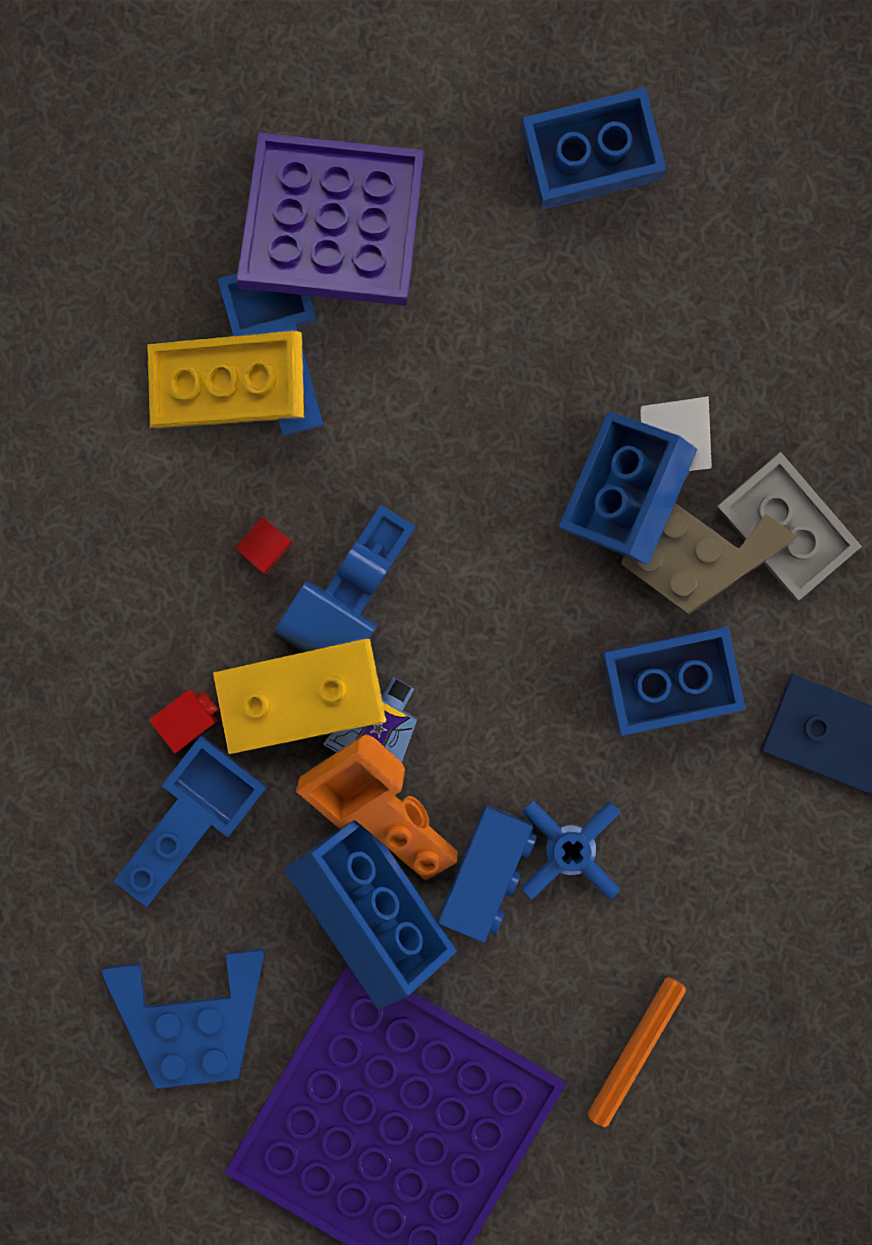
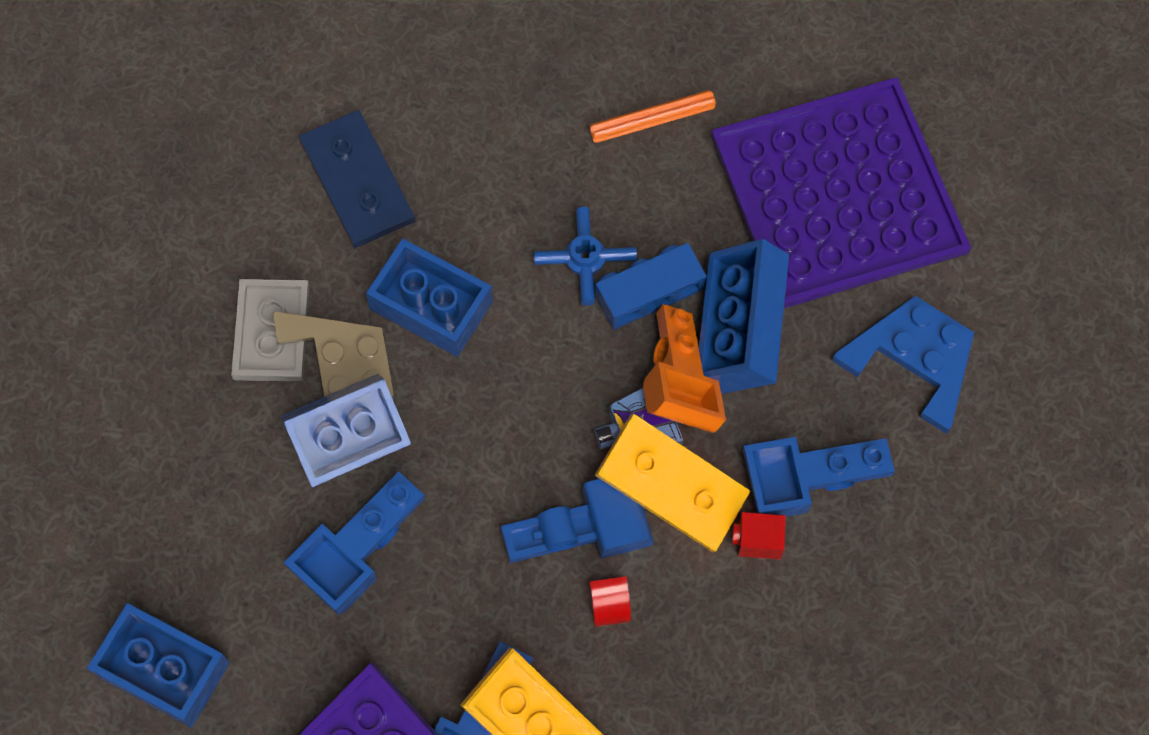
camera: 145 degrees left, 20 degrees down
(527, 366) = (335, 563): none -> blue plate
(689, 420) = (272, 443): white sticker -> none

